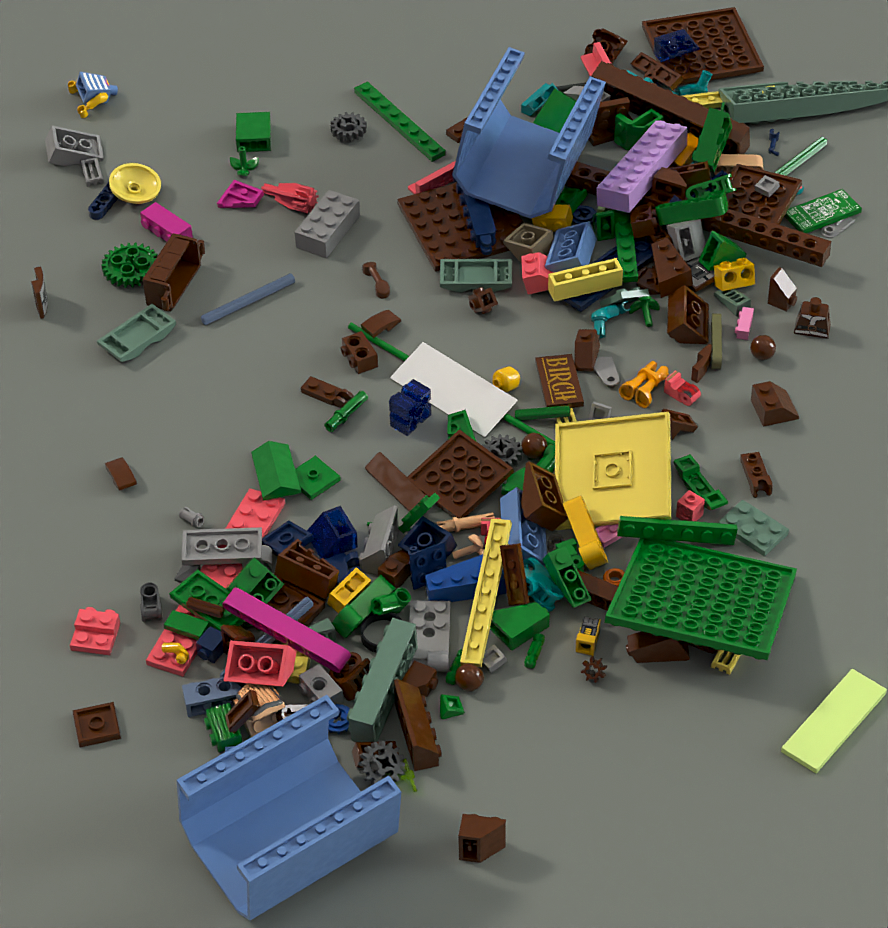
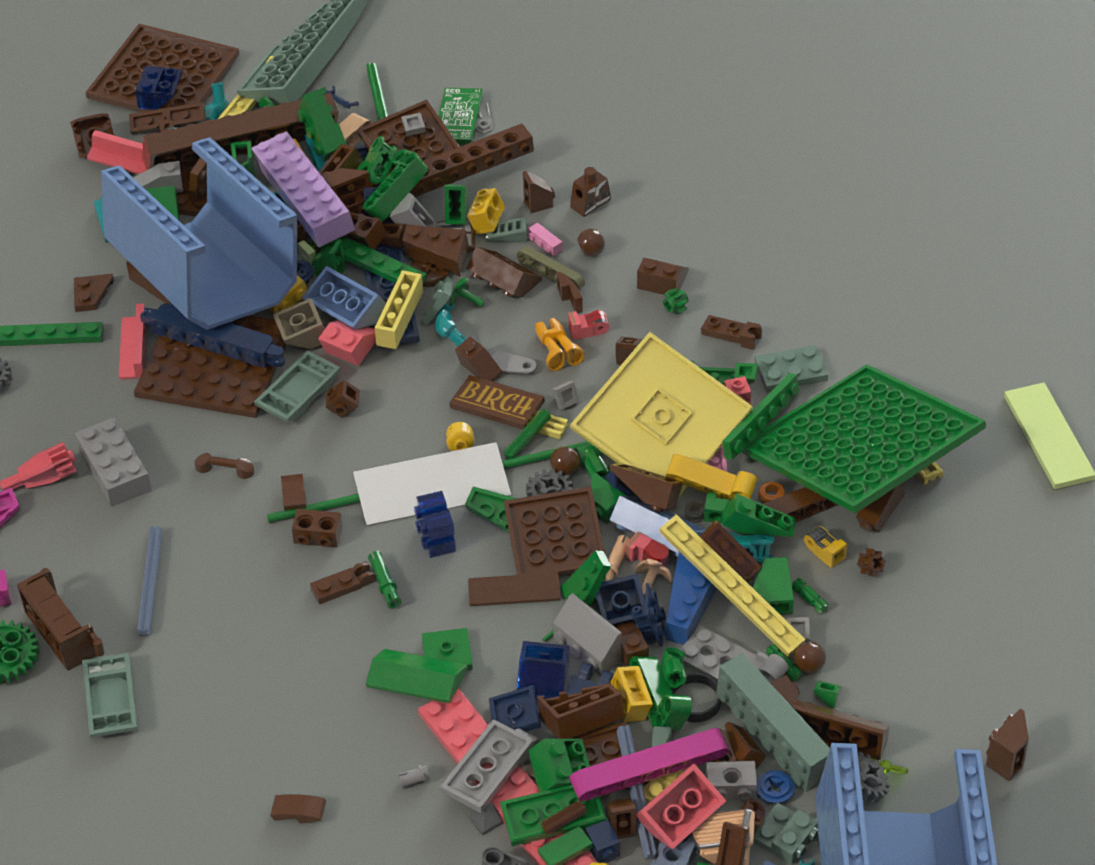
camera: 55 degrees left, 0 degrees up
(751, 425) = (675, 301): none -> green gear

